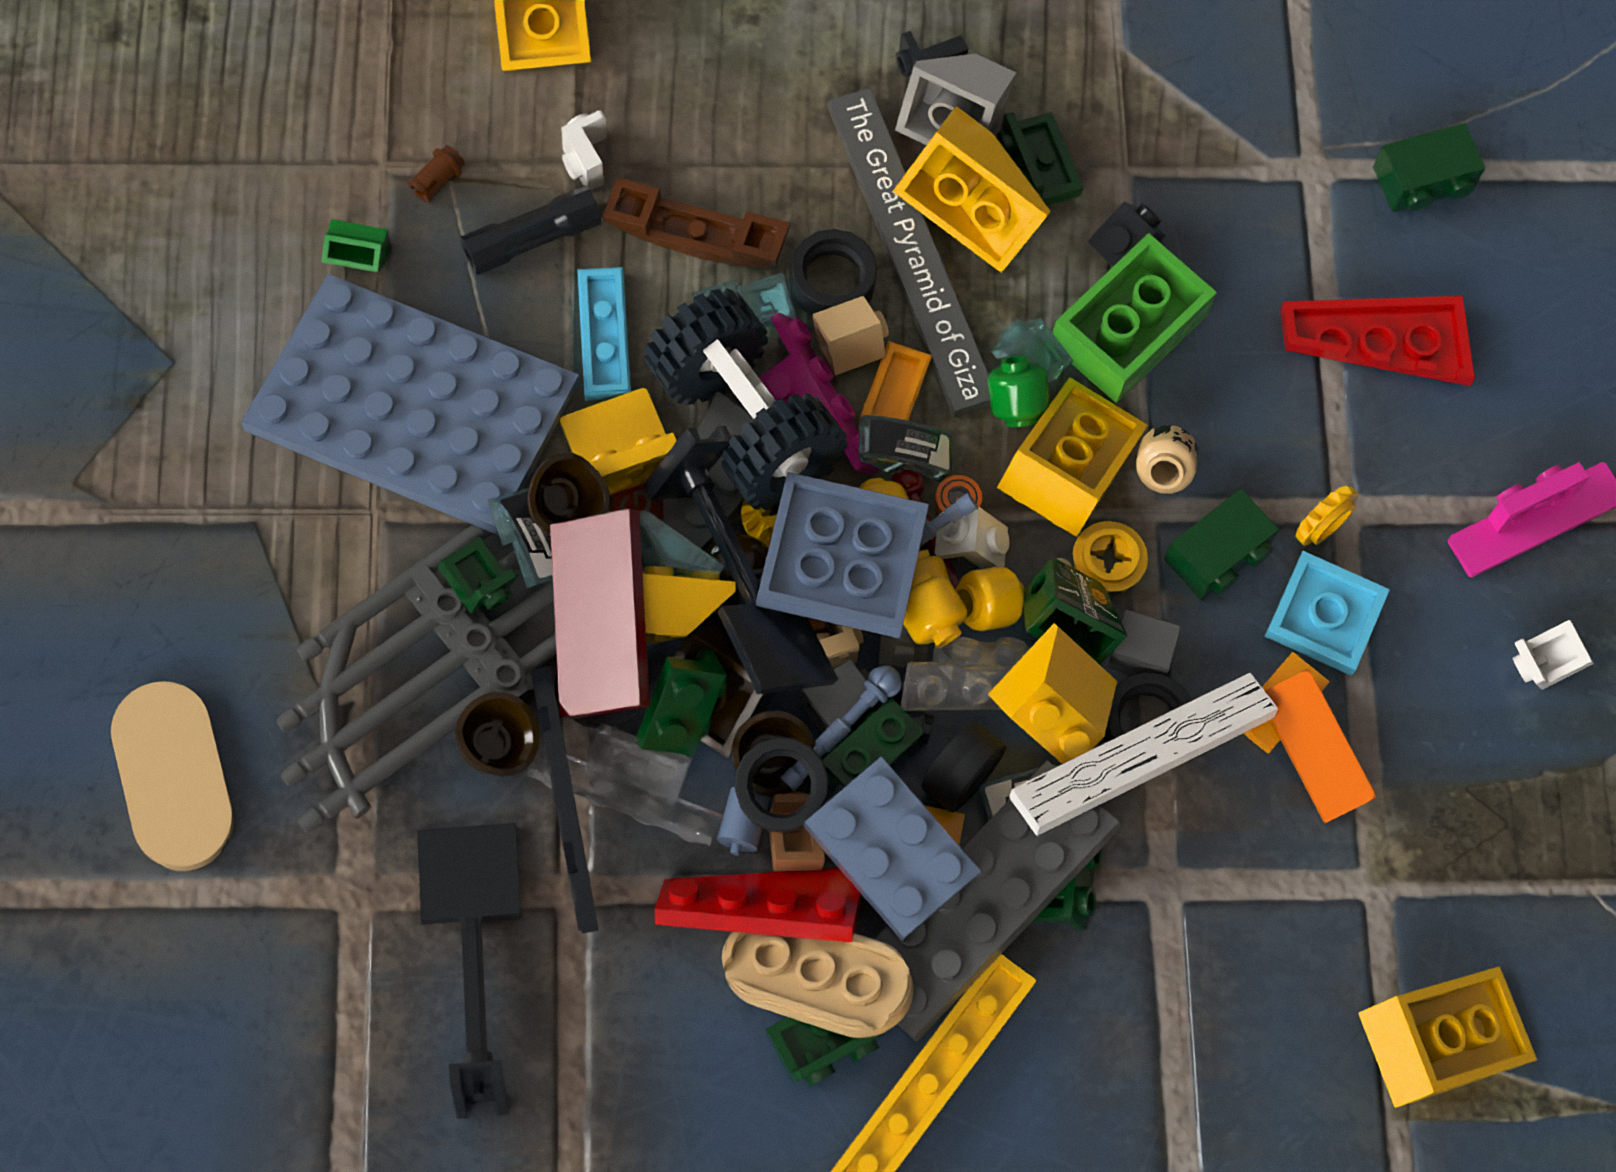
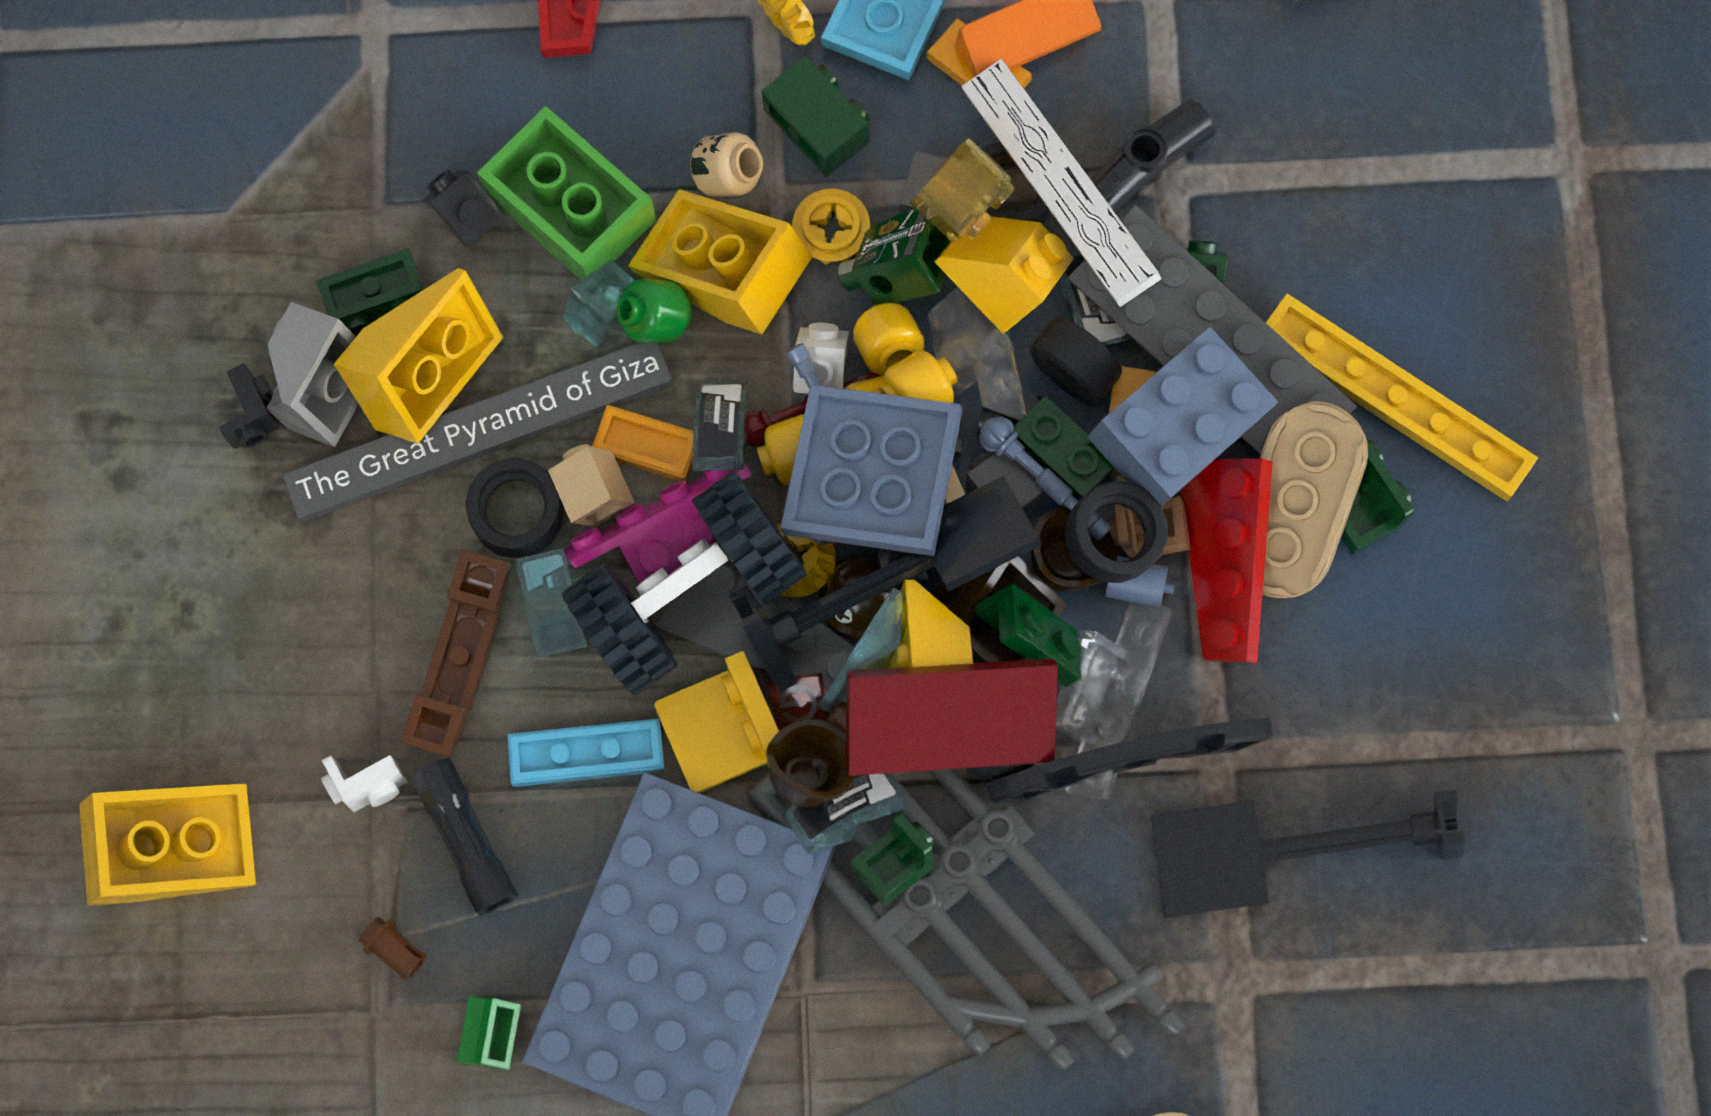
camera: 80 degrees left, 5 degrees up
(497, 734) = (1069, 832): dark brown helmet -> none
(954, 488) = (770, 377): orange tile -> none
(1130, 654) = (963, 191): none -> clear yellow brick
(1202, 877) = (1165, 139): none -> black piece

